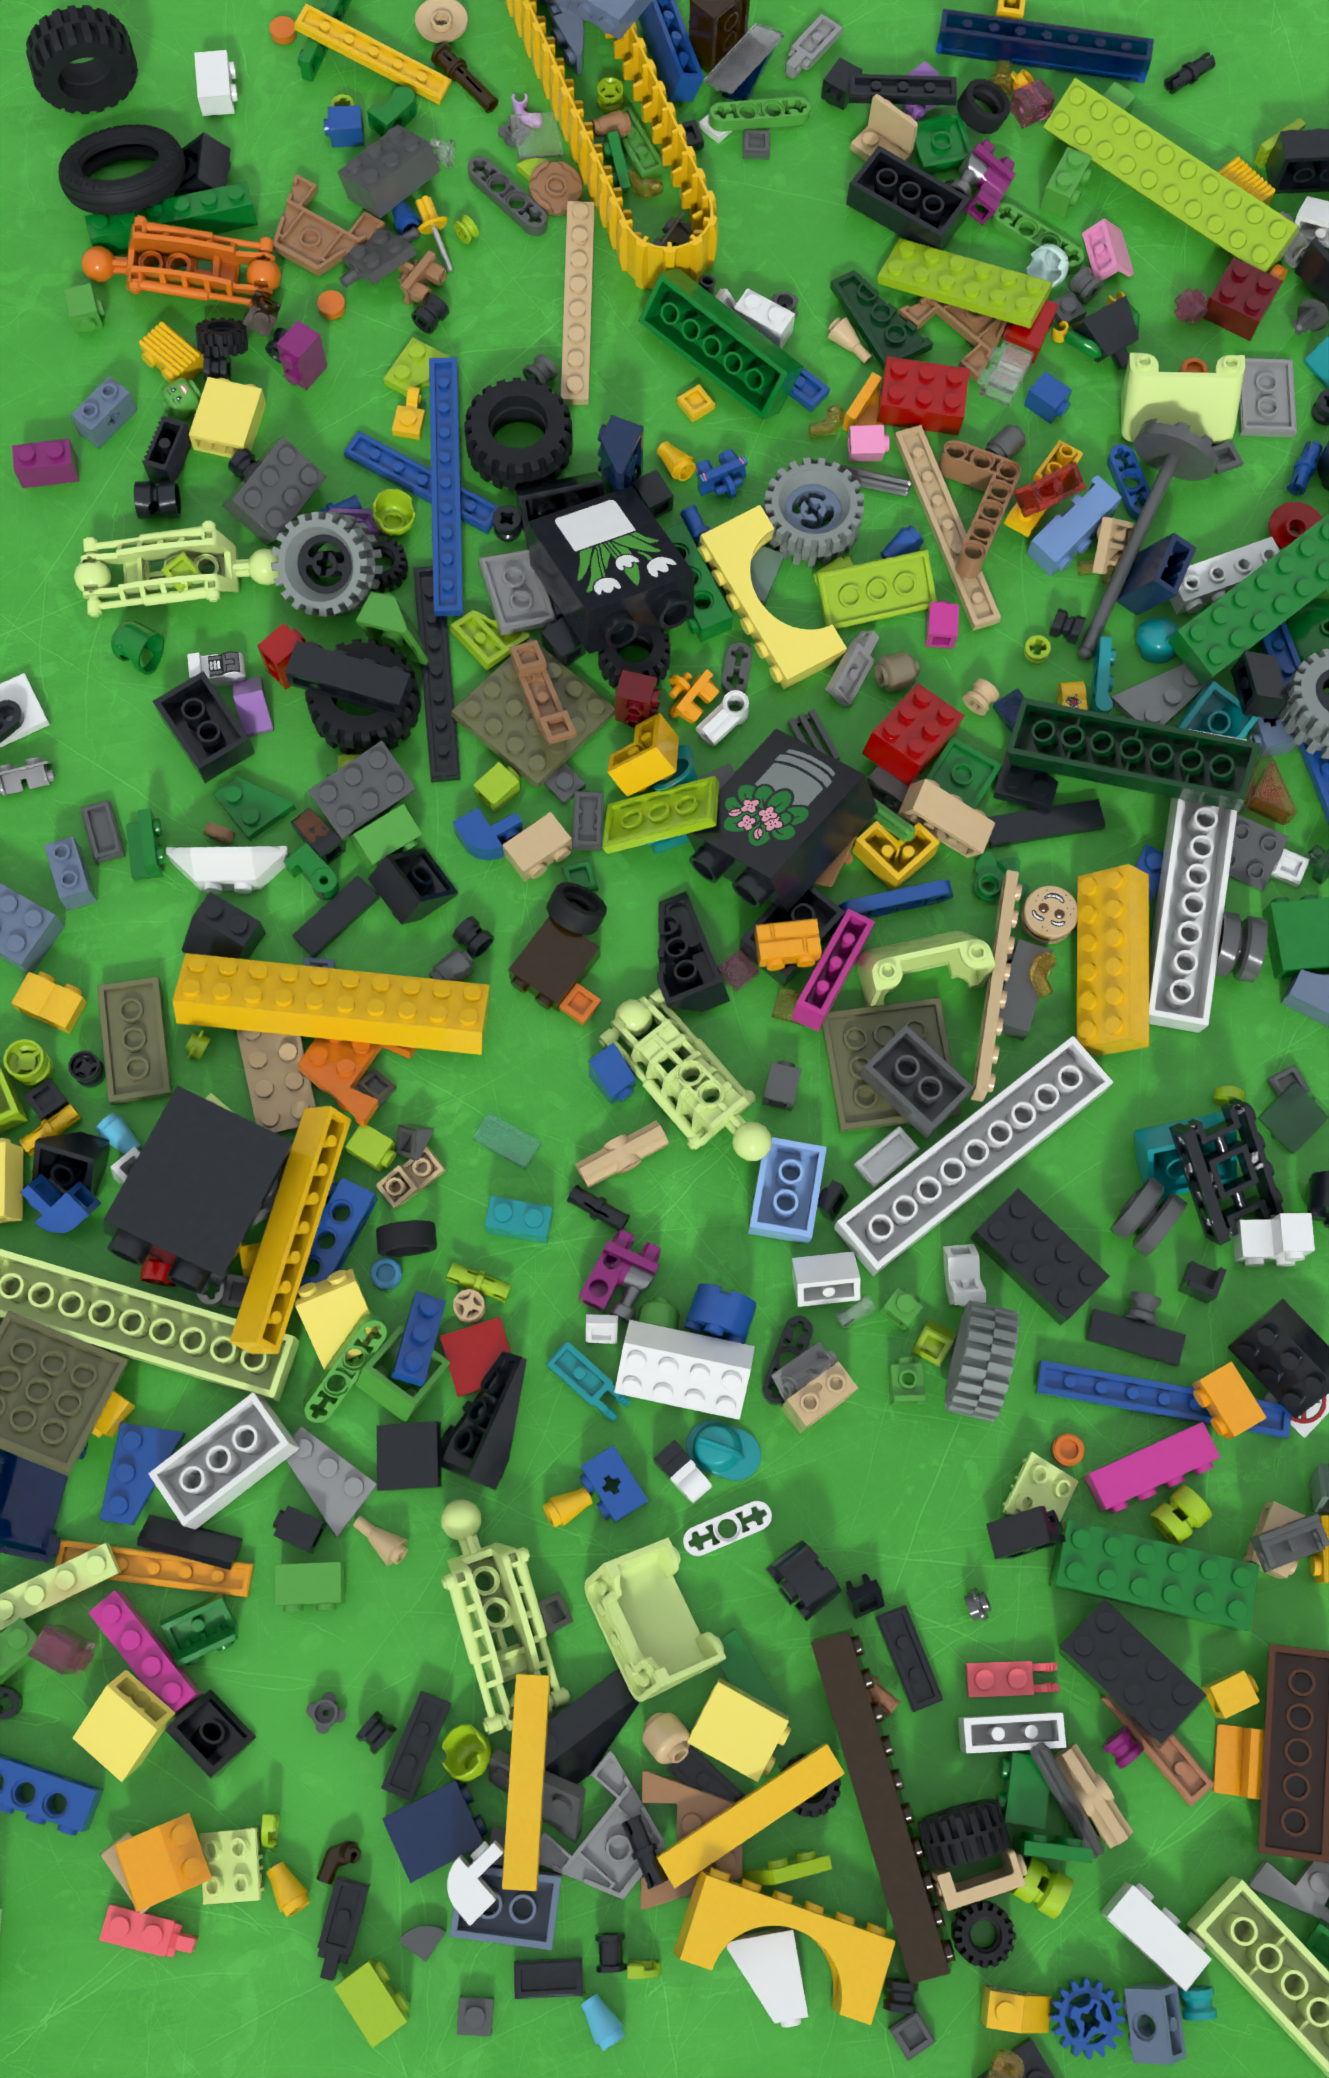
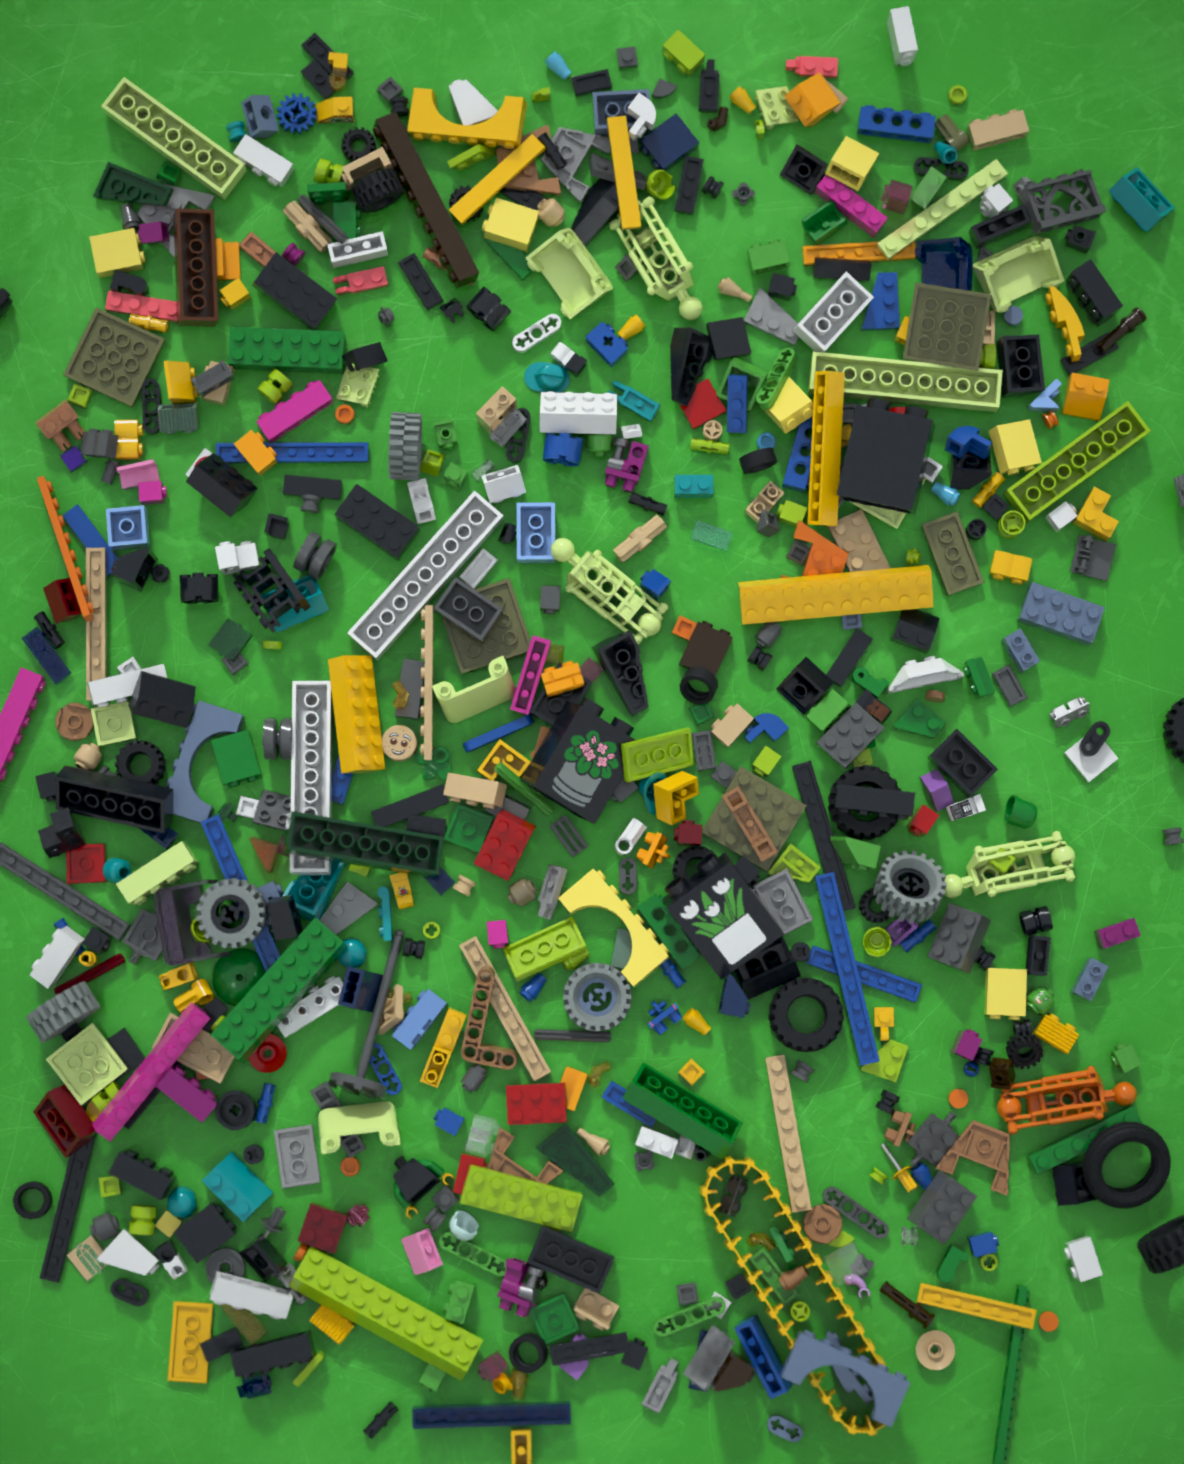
camera: 170 degrees right, 10 degrees up
(610, 1952) = (560, 100): black bush -> none
(654, 493) = (707, 991): black panel -> none
(867, 443) = (568, 1059): bright pink brick -> none
(1049, 489) = (441, 1033): clear red brick -> none

